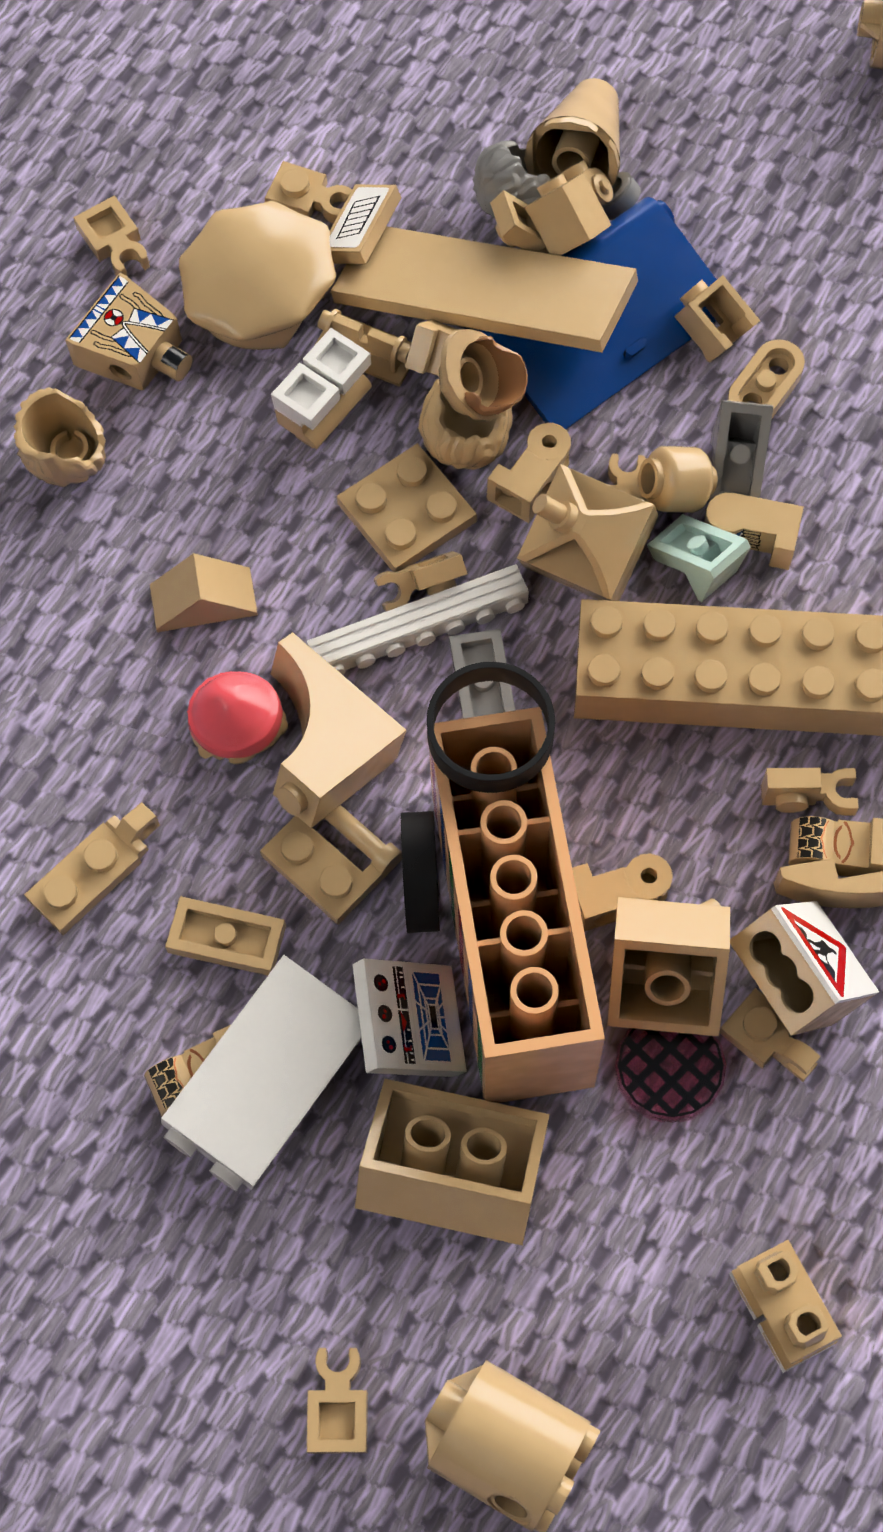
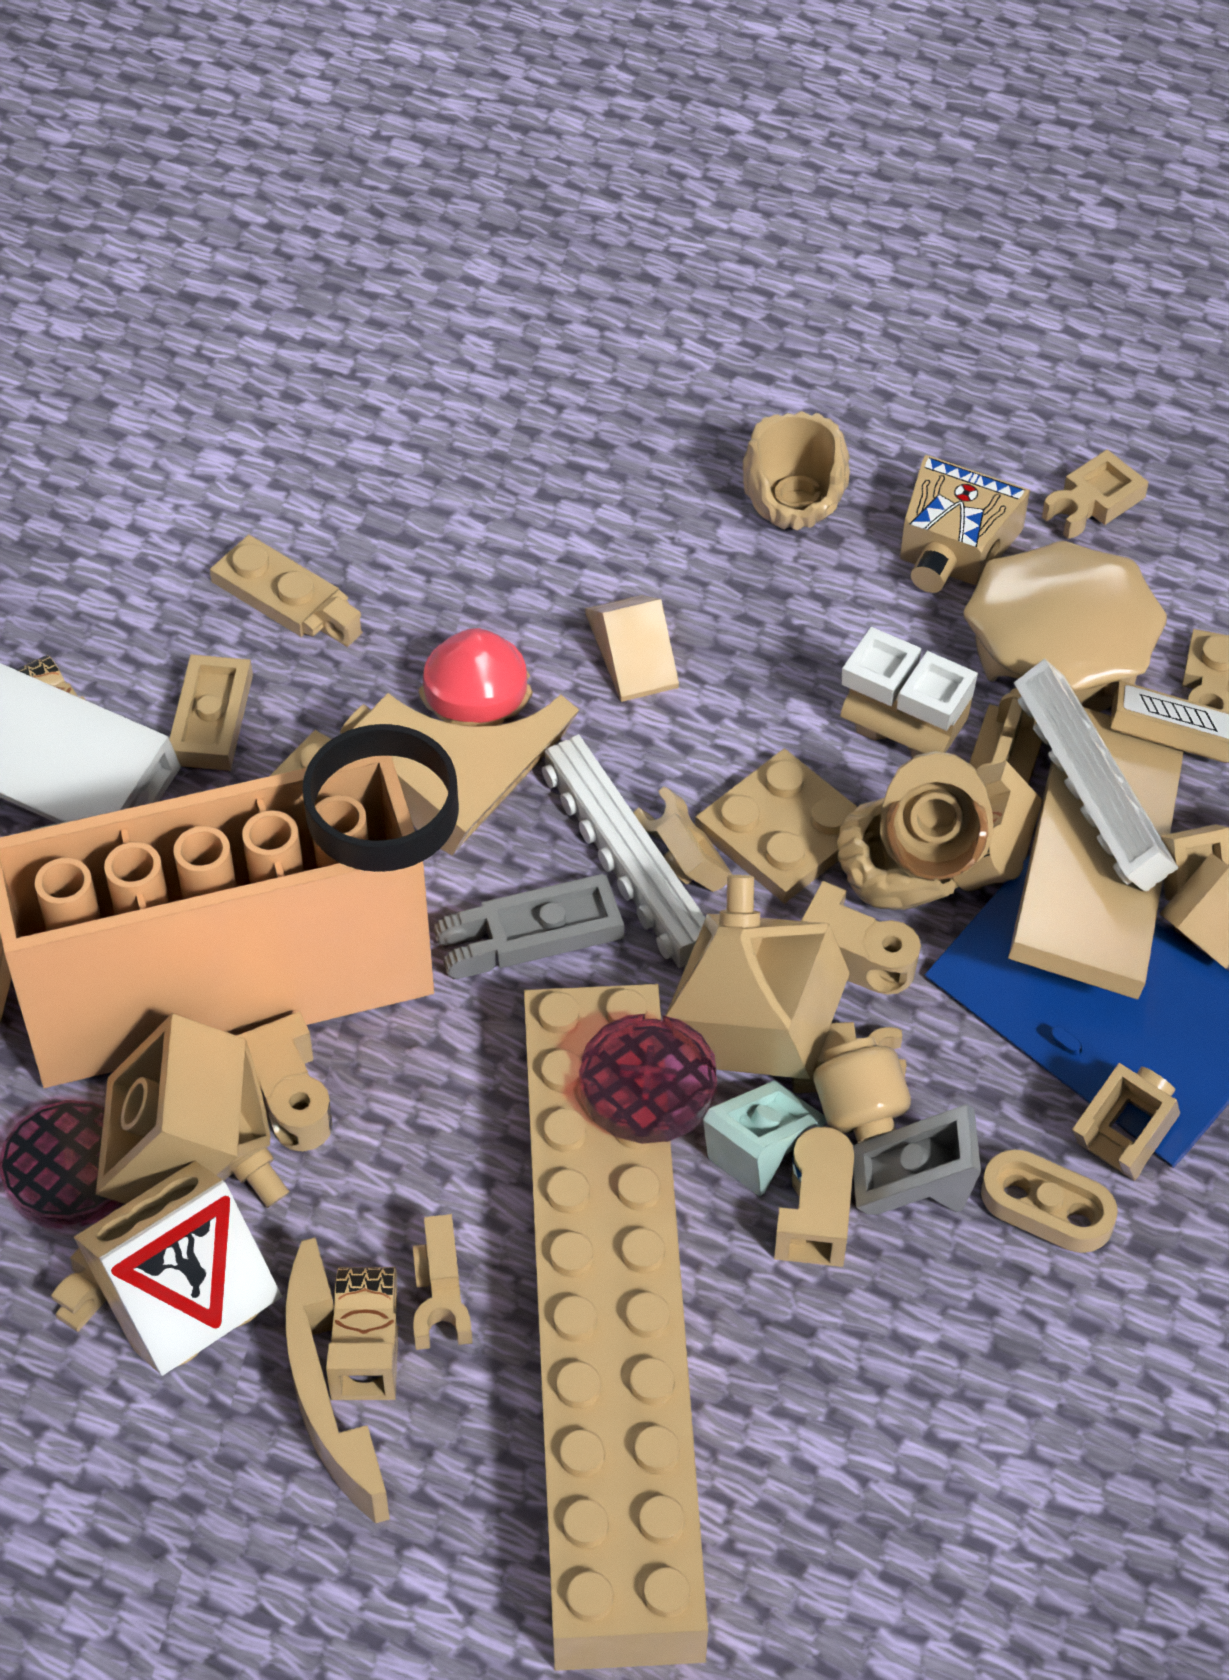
camera: 80 degrees right, 15 degrees down
(434, 272) = (1094, 777): none -> white piece
(679, 609) = (647, 1078): none -> clear pink tile

